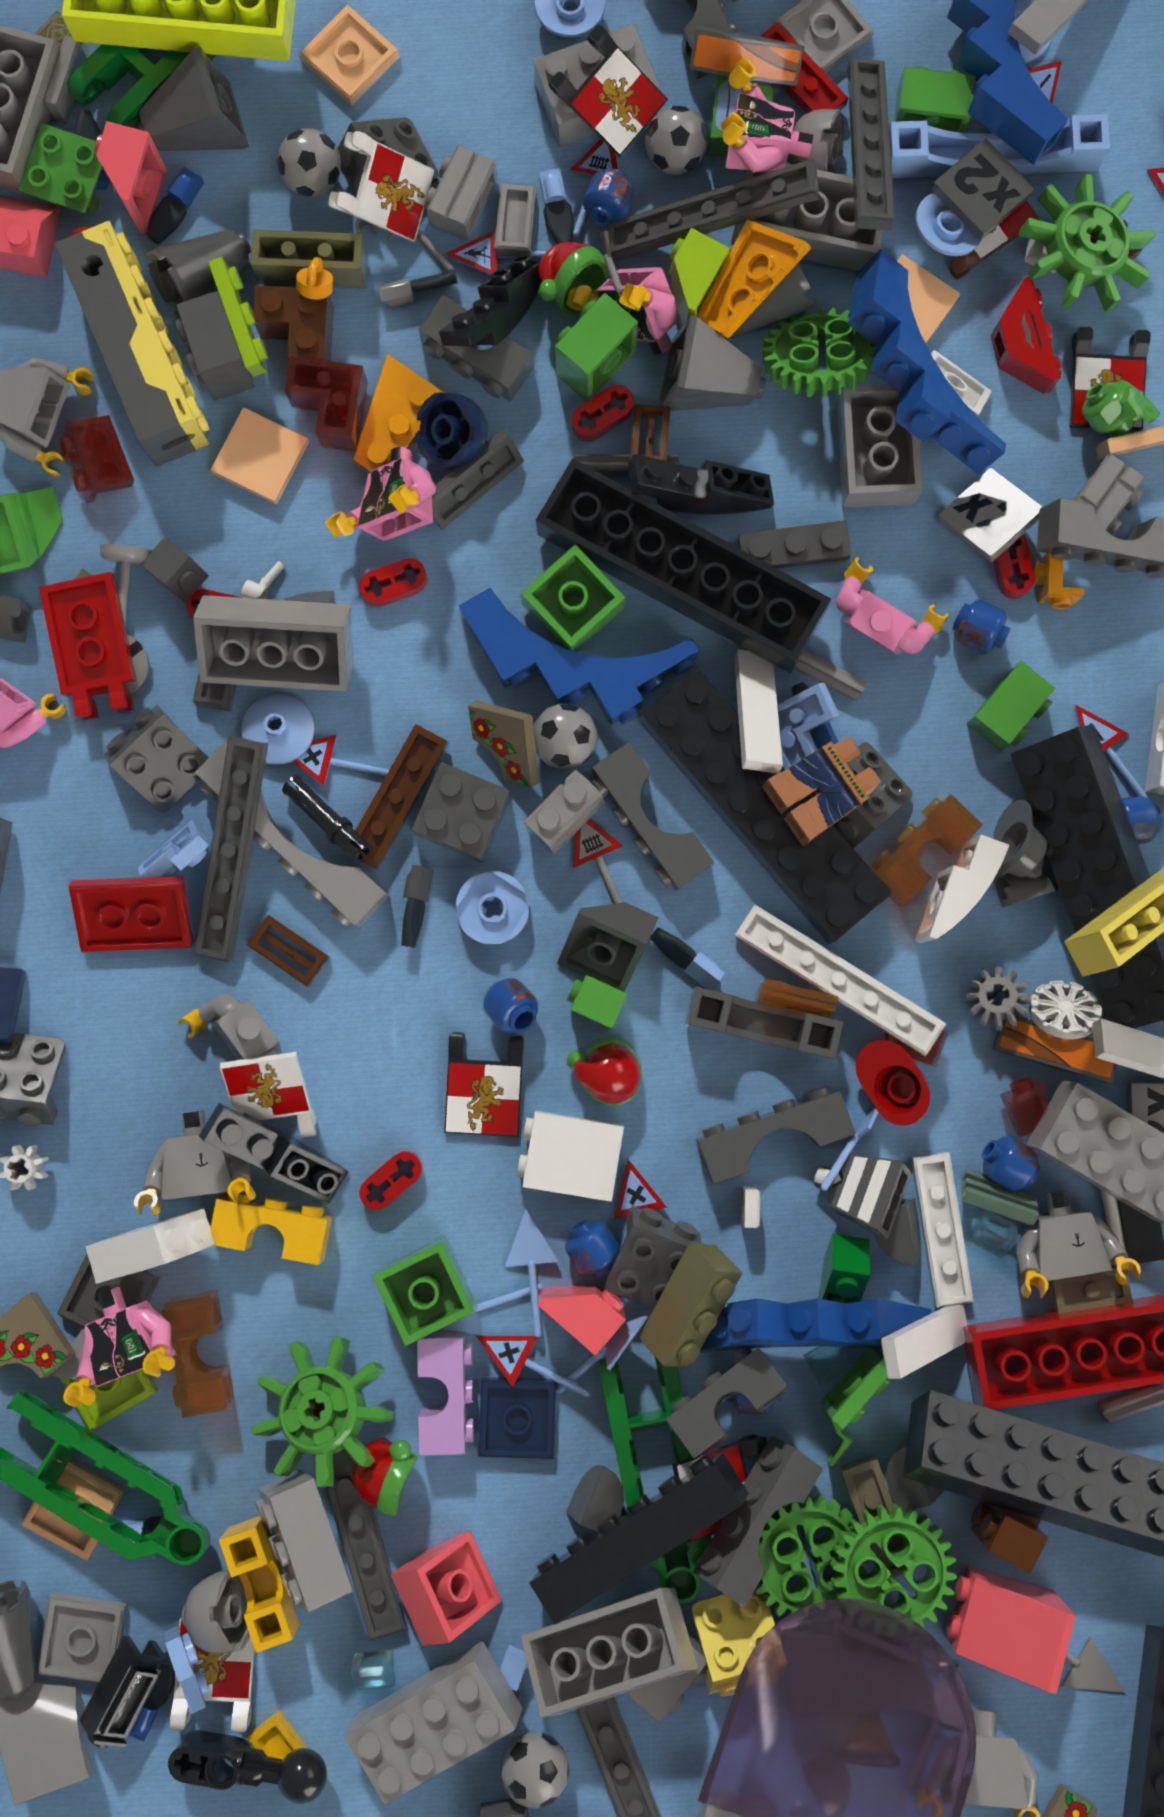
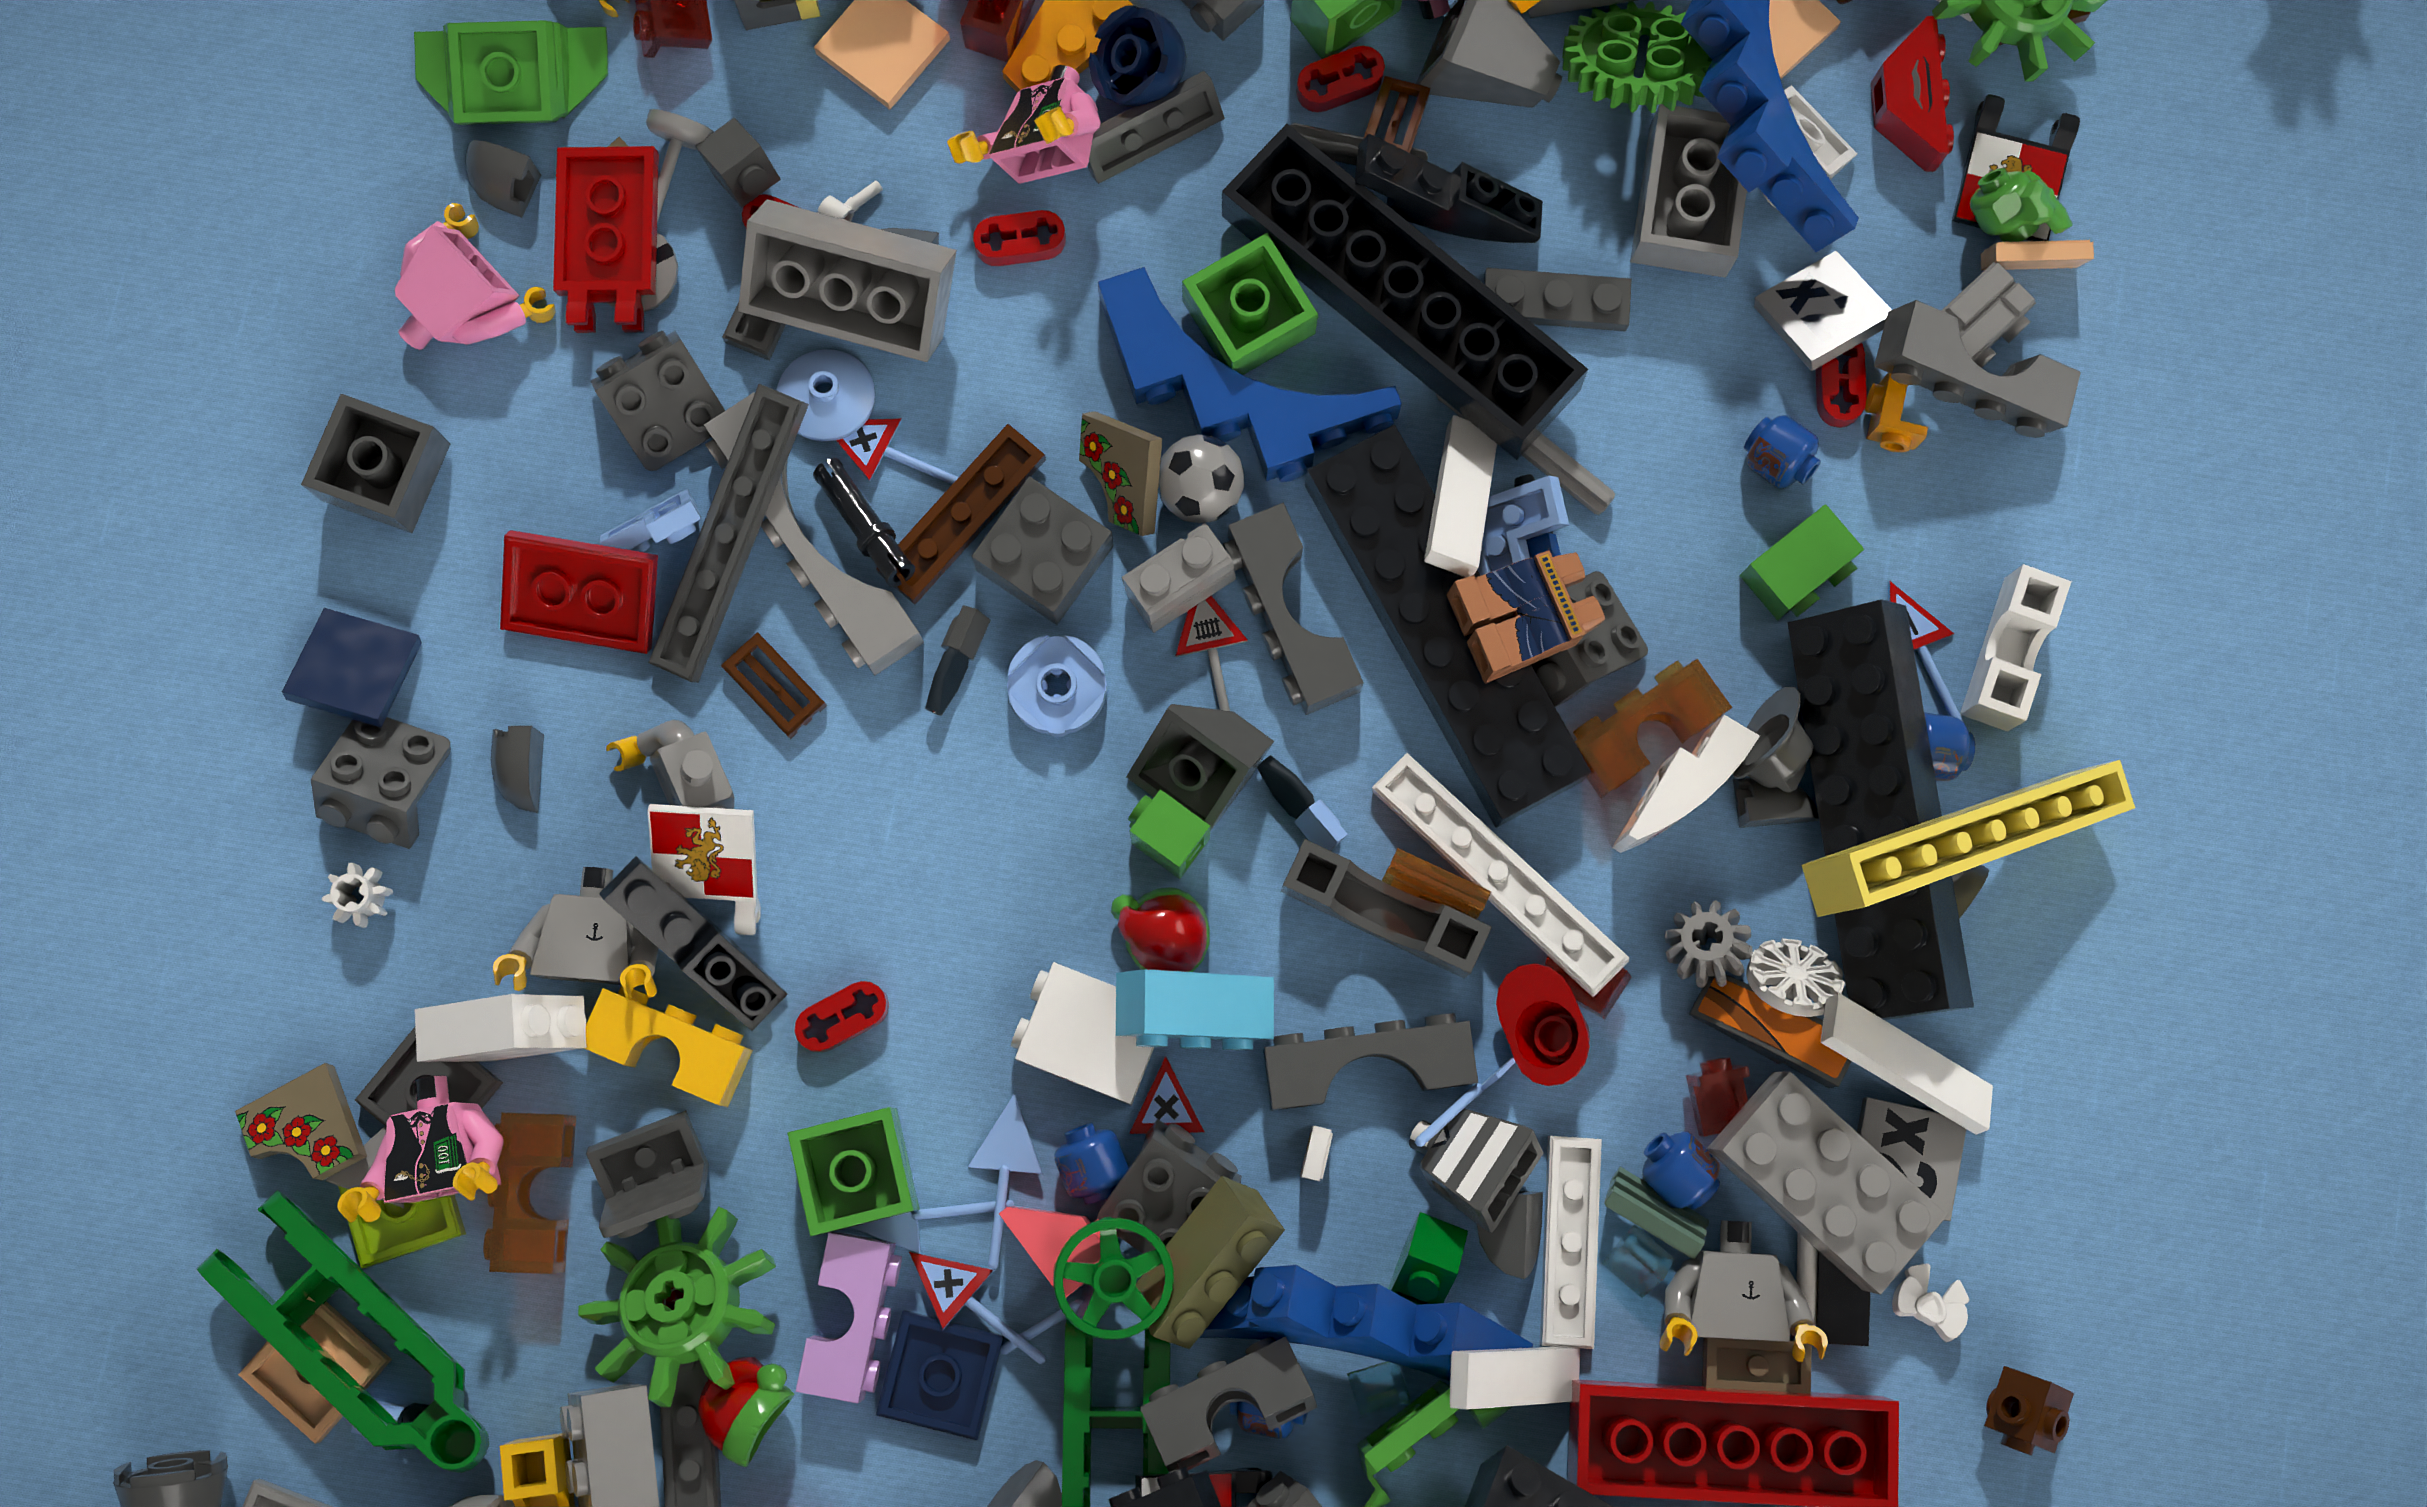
camera: 10 degrees right, 5 degrees down
(117, 1048) = (518, 765): none -> dark grey brick
(280, 1325) = (649, 1175): none -> dark grey bracket
(483, 1093) = (990, 928): flag -> none
(511, 1006) = (1052, 816): blue head -> none
(627, 1332) = (1113, 1277): none -> green wheel
(643, 1125) = (1194, 1008): none -> medium azure brick
(880, 619) = (1651, 415): bright pink torso -> none

